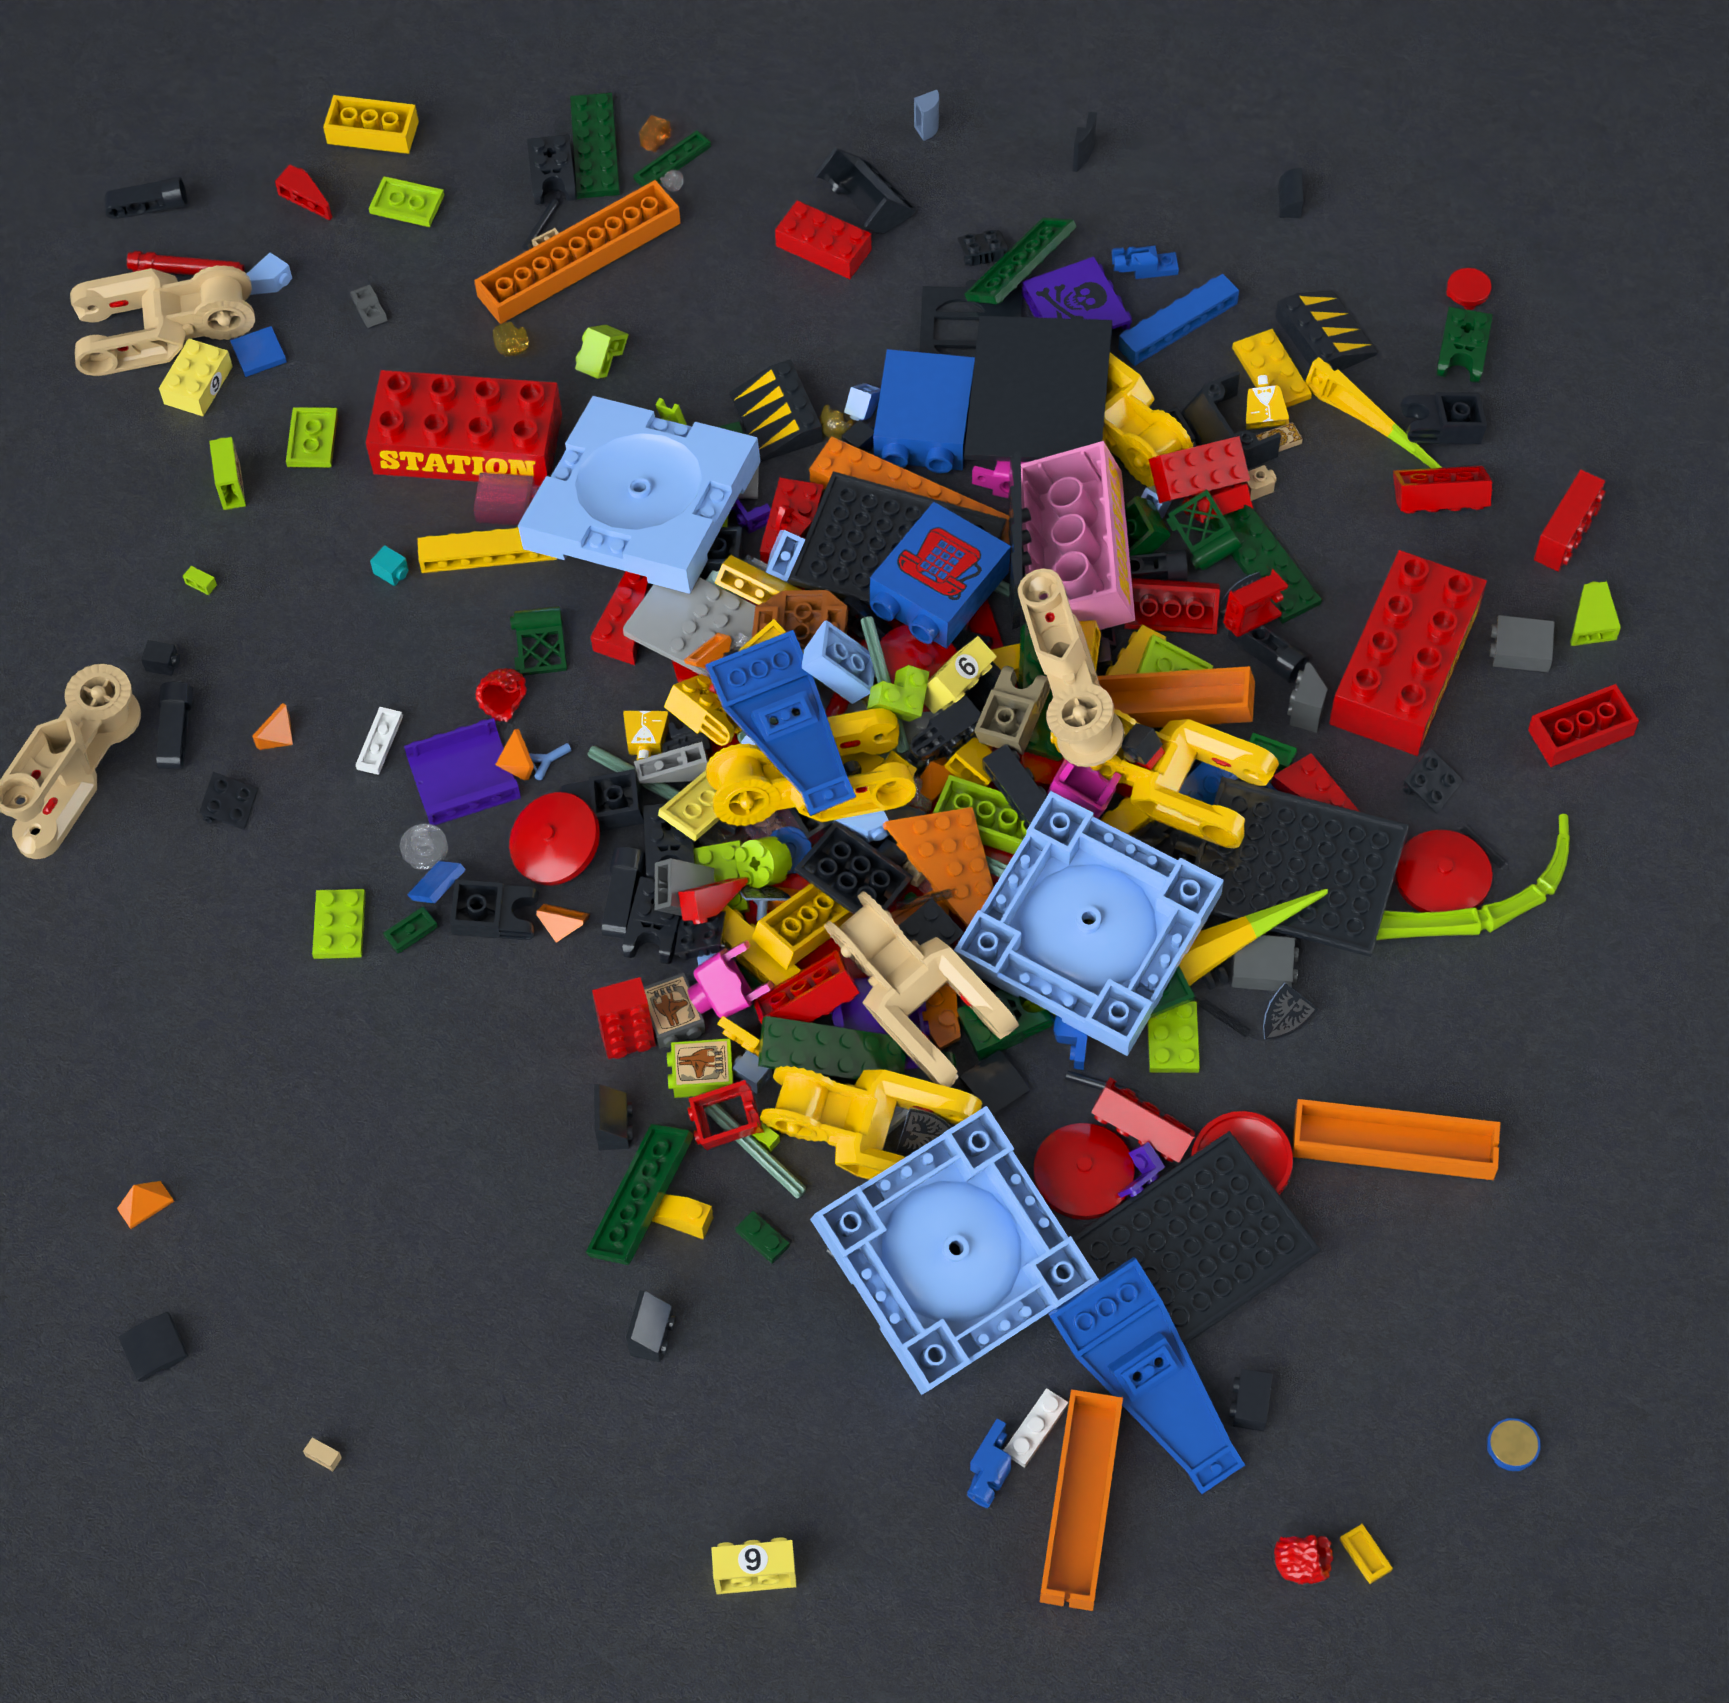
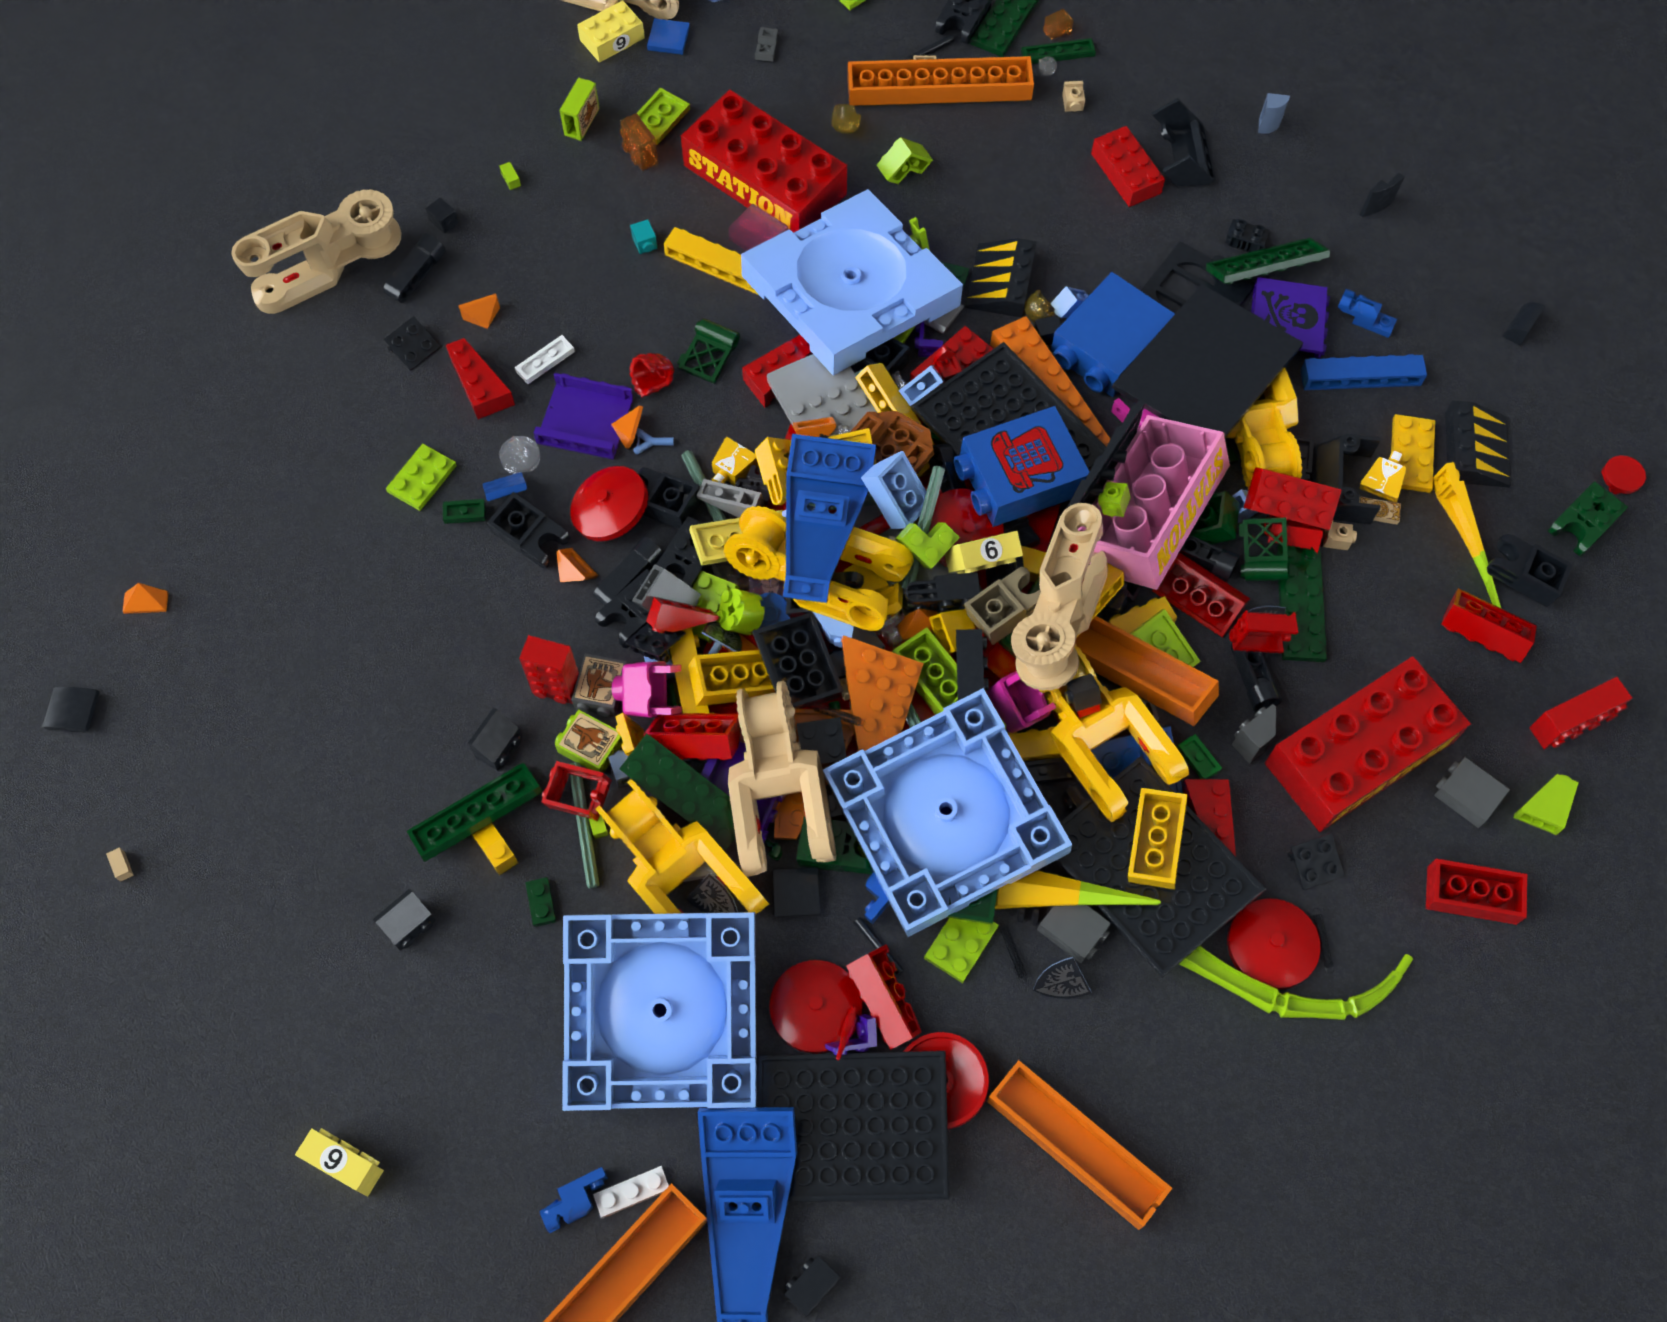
camera: 30 degrees right, 5 degrees up
(316, 473) = (638, 142): none -> clear orange brick
(327, 797) = (479, 381): none -> red wedge
(721, 198) = (1073, 96): none -> tan brick
(1046, 555) = (1114, 499): none -> lime brick
(1129, 1167) = (847, 1030): none -> red animal
(1289, 835) = (1157, 838): none -> yellow brick

